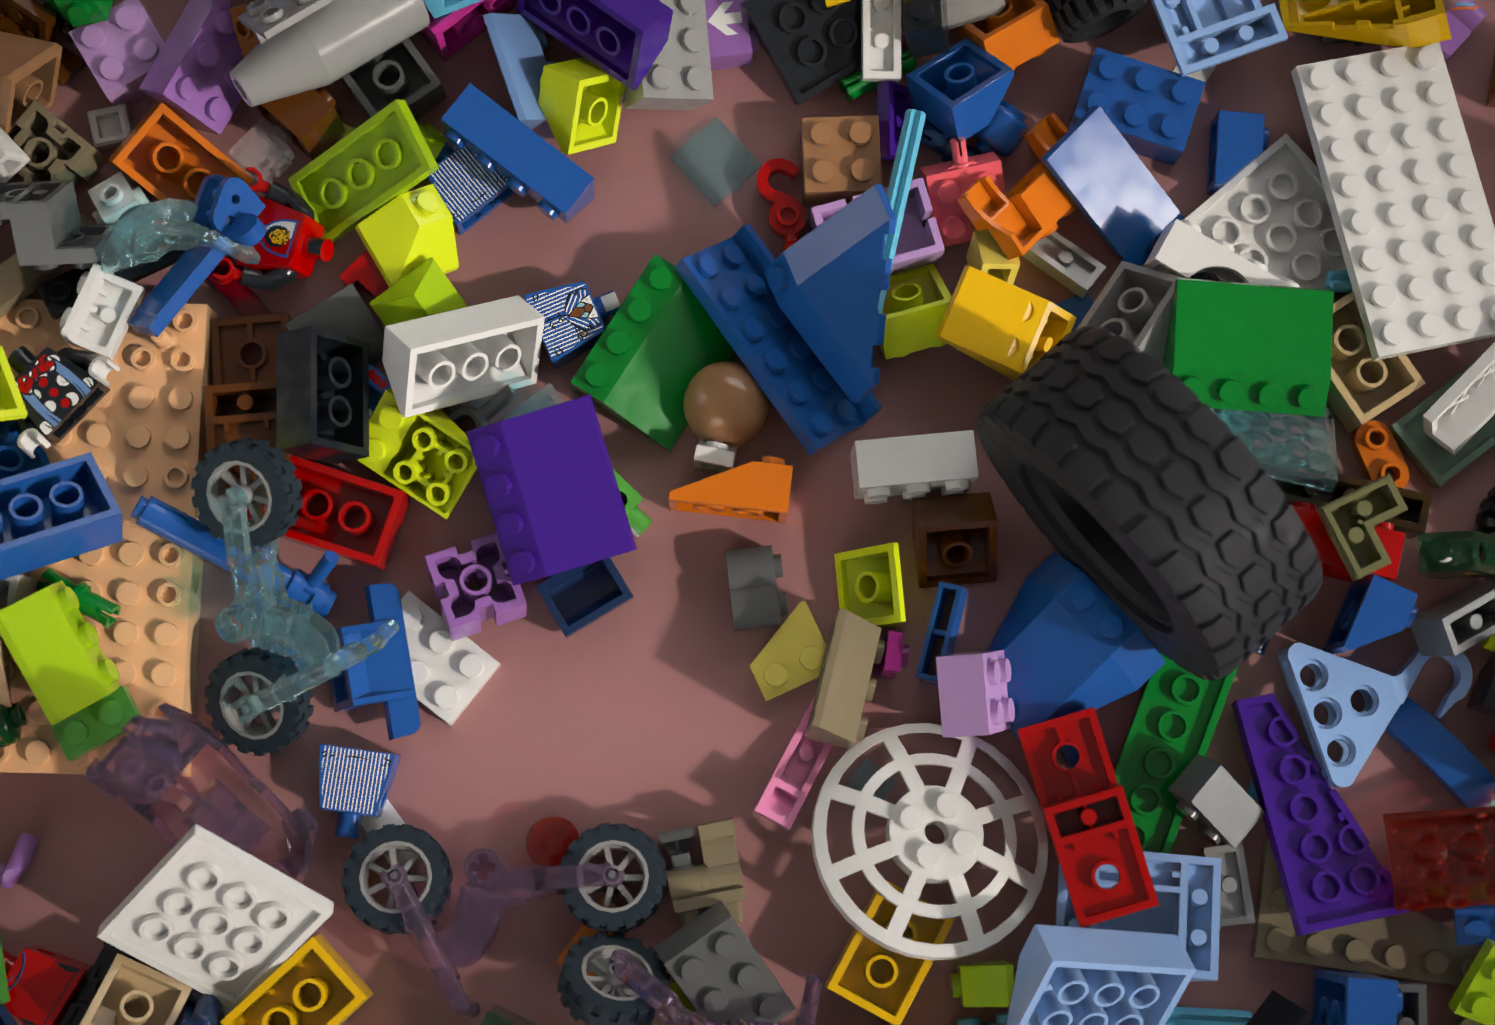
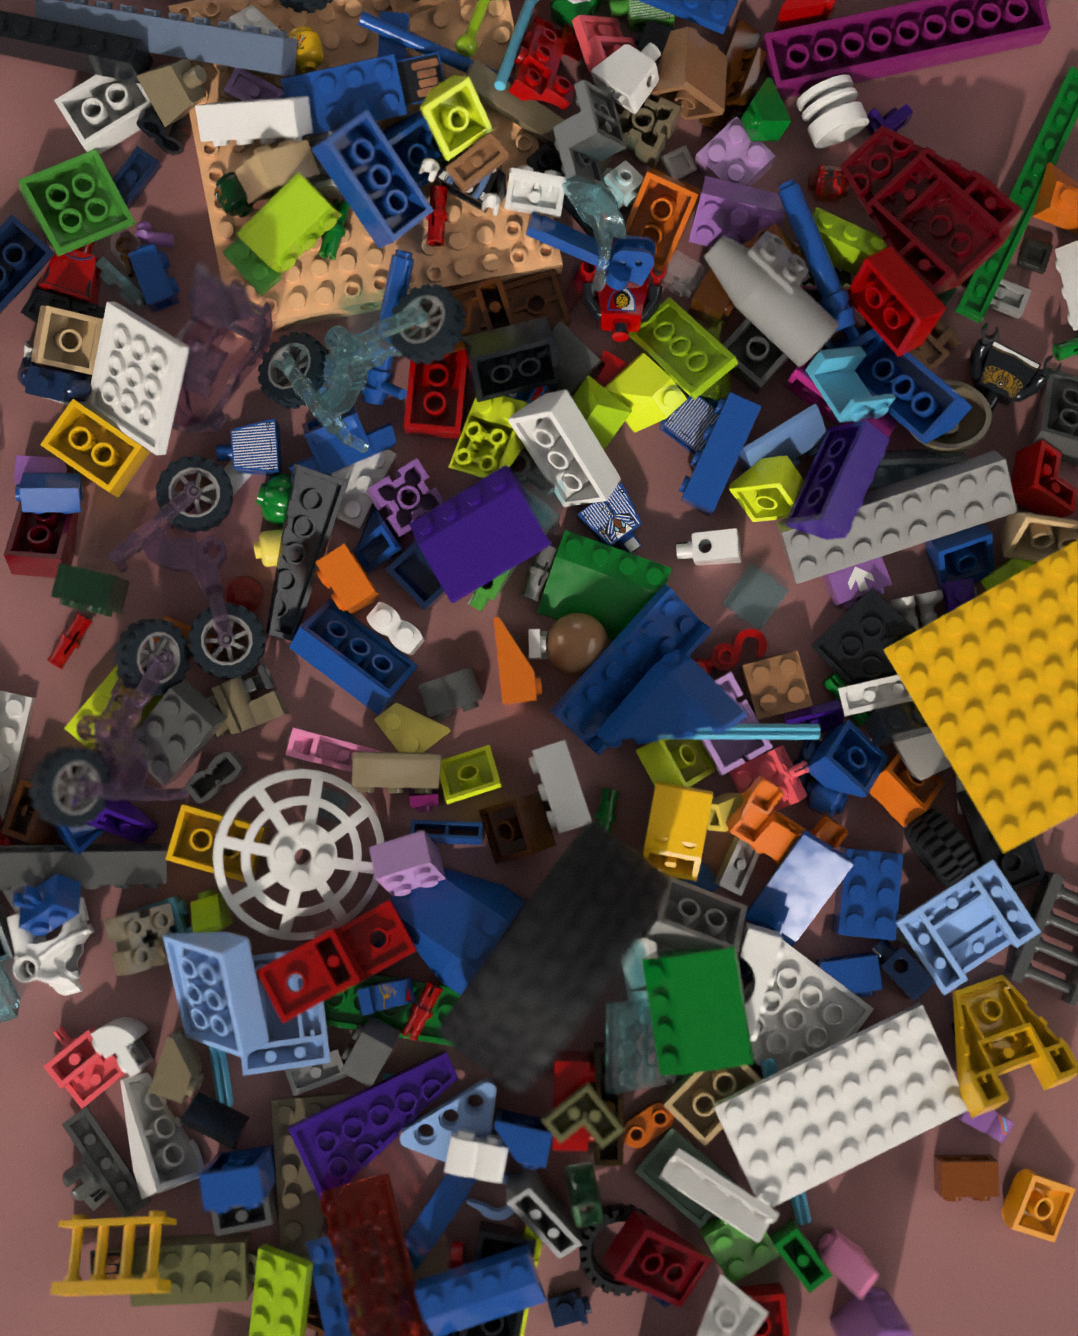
camera: 90 degrees right, 5 degrees up
(34, 908) = (124, 257): none -> reddish brown hand
(41, 376) = (477, 162): none -> medium nougat plate
(57, 931) = (113, 276): none -> clear light blue plate
(75, 873) = (154, 279): none -> blue brick
(105, 455) = (438, 217): none -> red pin
(435, 759) = (274, 498): none -> green plant
(488, 733) = (307, 527): none -> black wing
(498, 785) = (268, 547): none -> light yellow head
(523, 644) = (376, 543): none -> blue slope
(567, 691) = (348, 580): none -> orange brick
(623, 438) = (539, 573): none -> light grey pin
(639, 180) = (724, 548): none -> white torso
(658, 636) = (400, 632): none -> white brick
(674, 709) = (353, 656): none -> blue slope
(803, 944) = (210, 783): none -> dark grey brick
(953, 415) = (606, 810): none -> green pin
(1144, 762) = (385, 995): none -> blue leg
(1175, 719) = (422, 1011): none -> red pin
(1257, 74) = (912, 979): none -> dark blue torso
(1385, 685) = (476, 1156): none -> white brick

